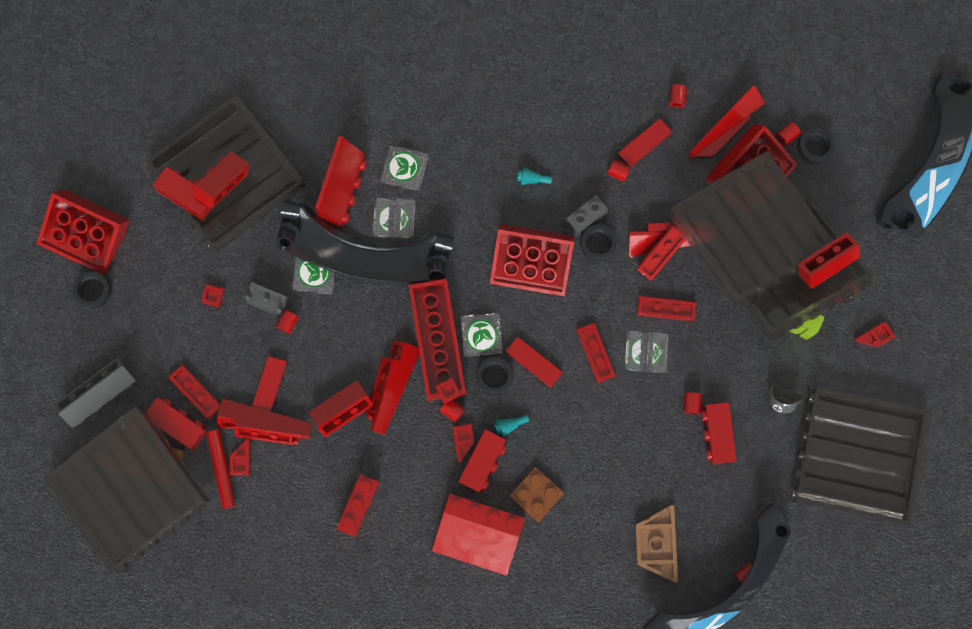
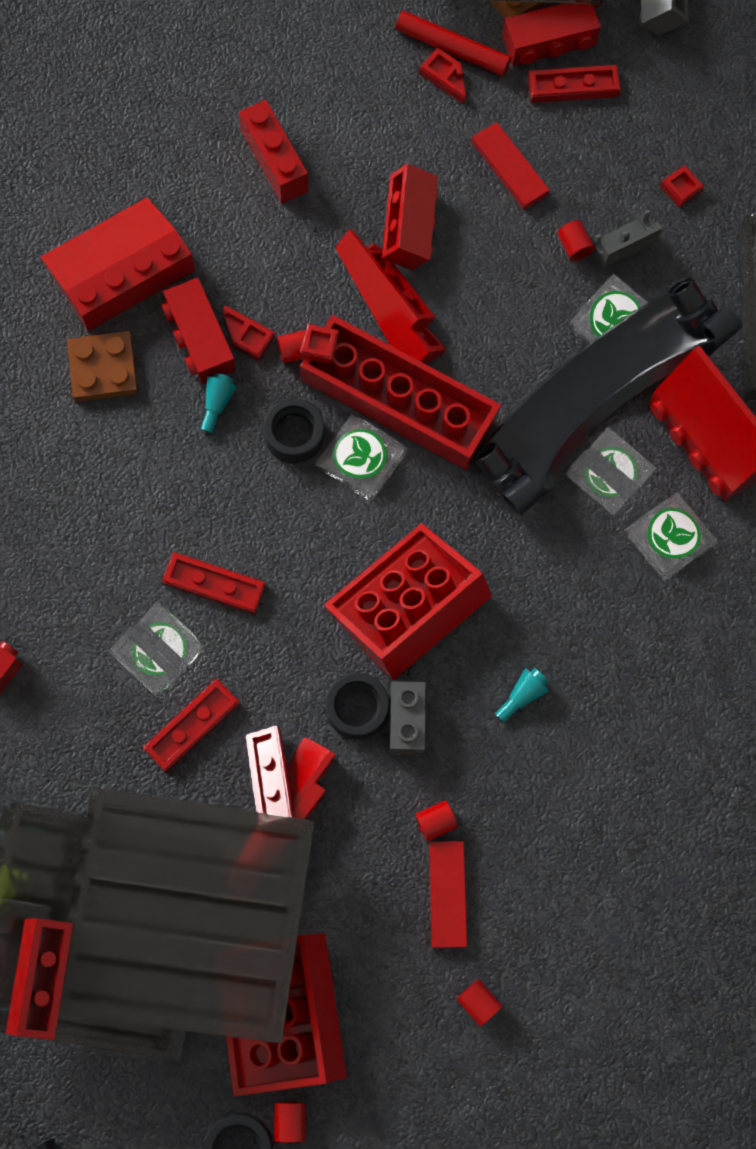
camera: 125 degrees right, 5 degrees down
(261, 424) = (471, 120): red wedge -> none
(534, 362) = (269, 495): red tile -> none
(692, 403) = (37, 649): red gear -> none
(728, 125) = (374, 1041): red wedge -> none

